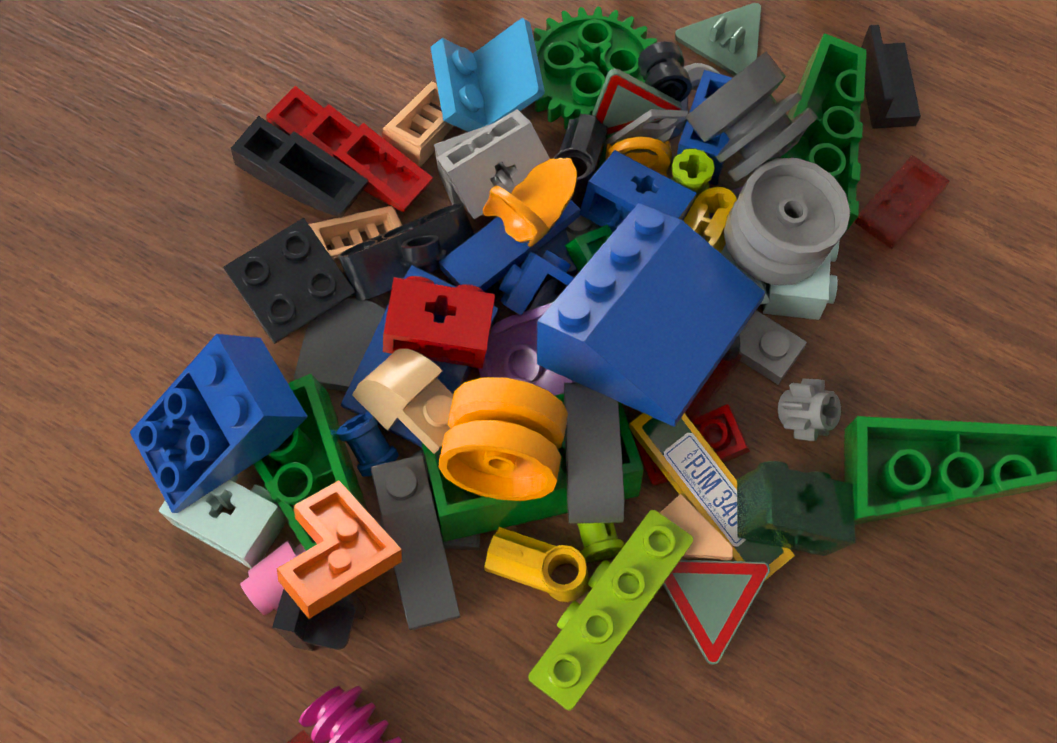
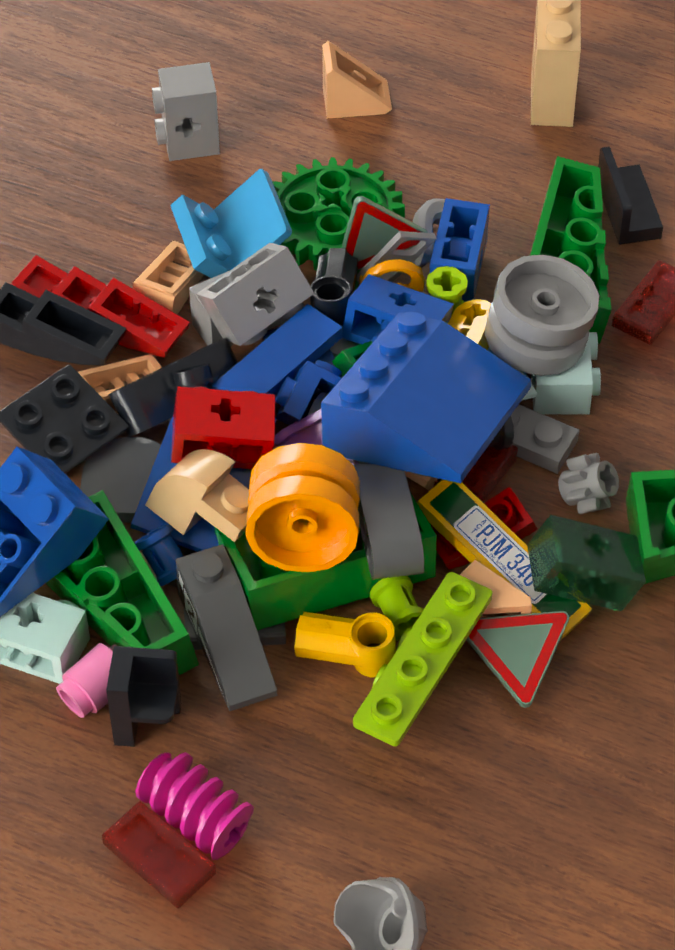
camera: 10 degrees left, 15 degrees down
(347, 552) = (160, 618): orange plate -> none
(534, 202) = (299, 322): light orange piece -> none
(664, 70) = (407, 198): black wheel -> none
(725, 39) = (463, 177): sand green piece -> none
(751, 117) = (494, 224): dark grey wheel -> none

